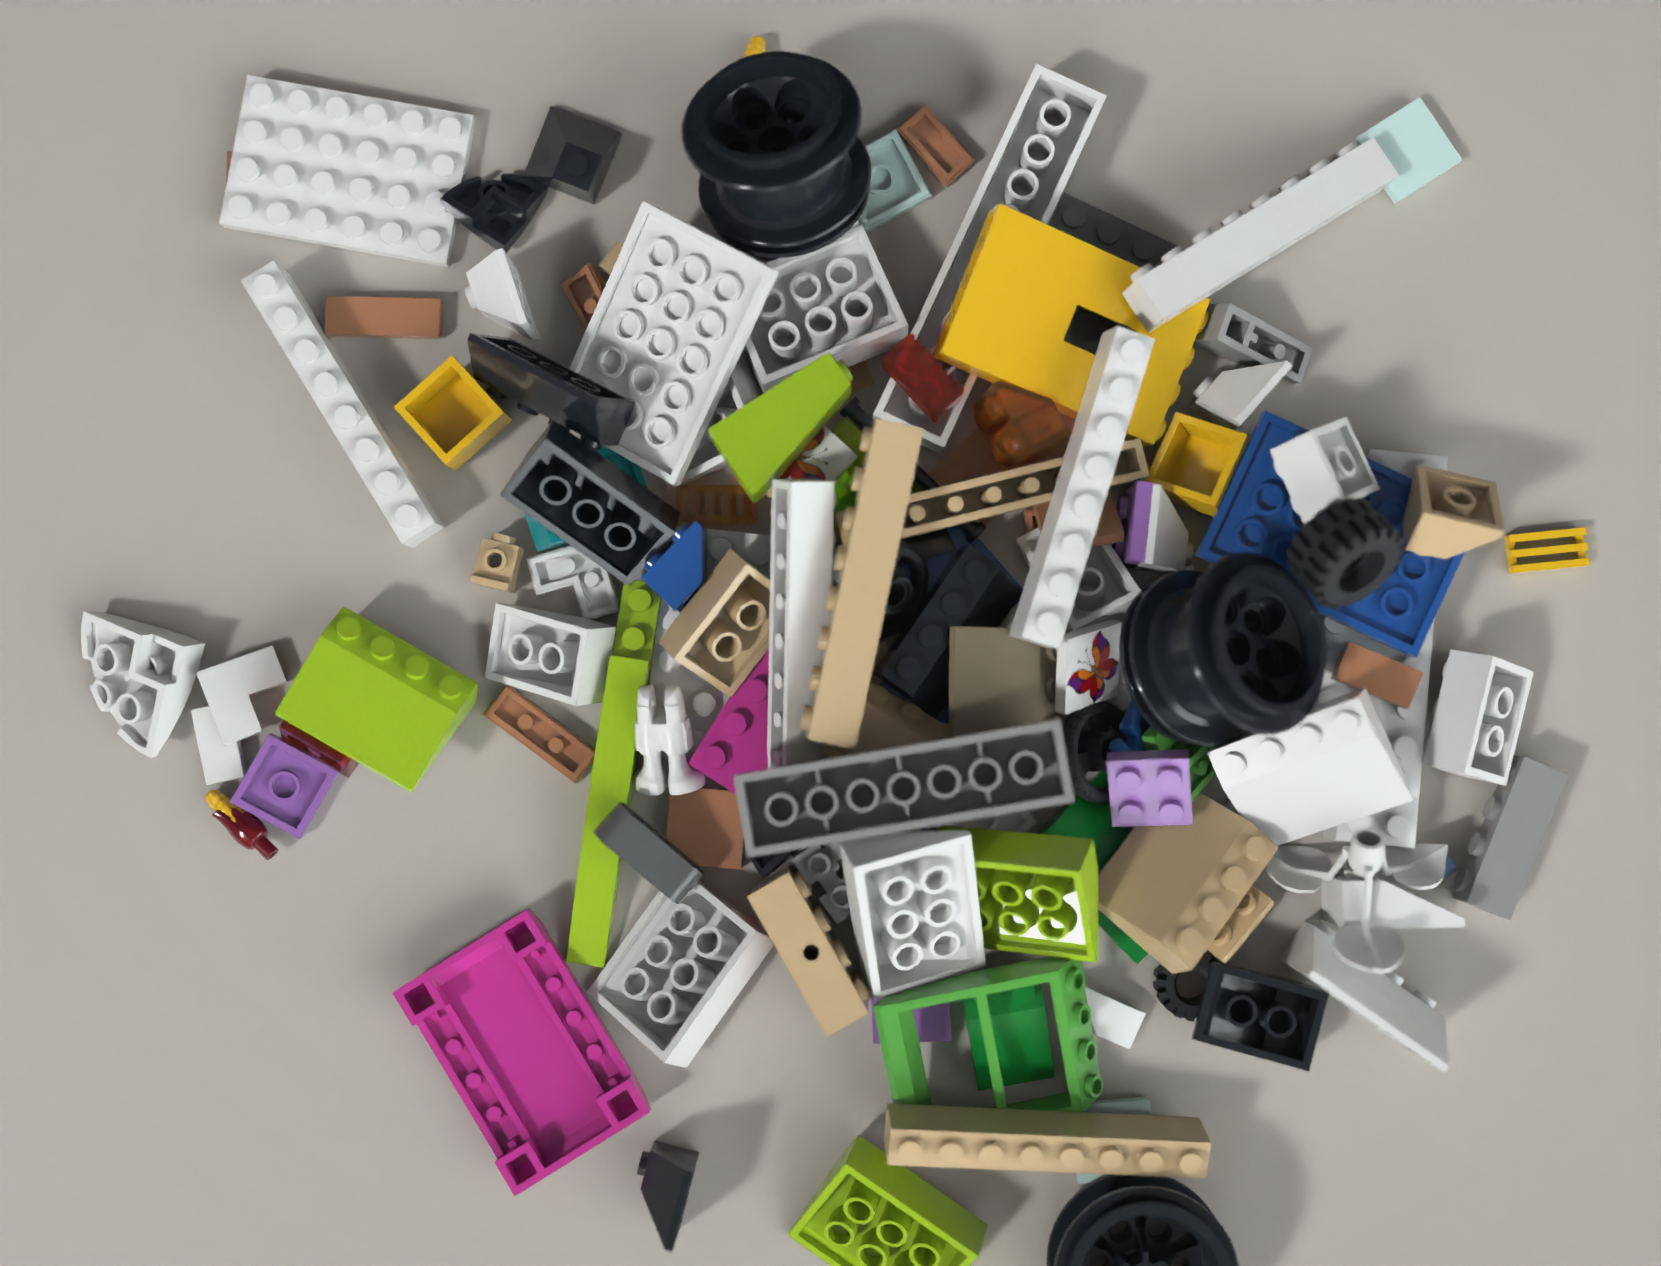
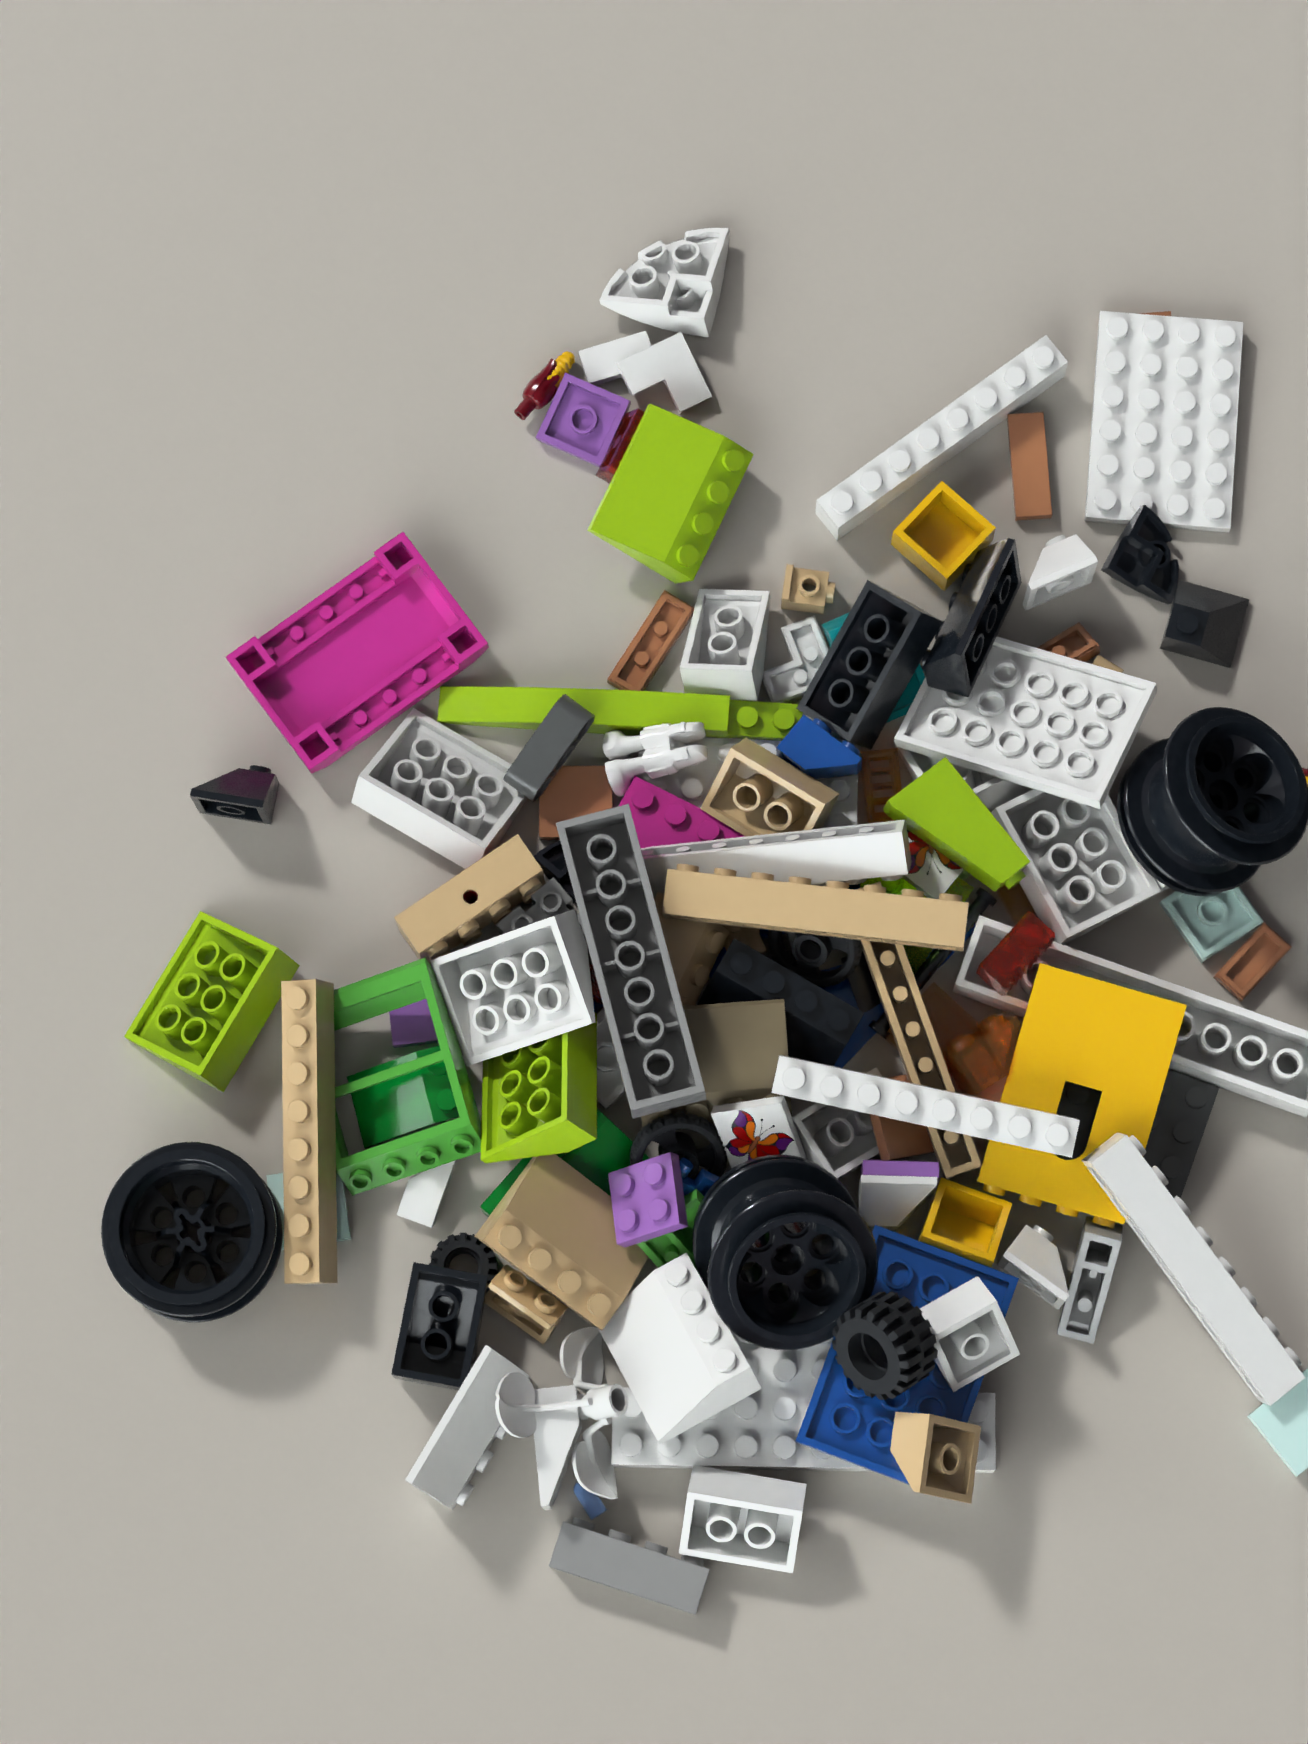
camera: 80 degrees right, 10 degrees down
(1378, 674) = (774, 1409): nougat tile -> none
(1578, 547) = (909, 1558): yellow tile -> none

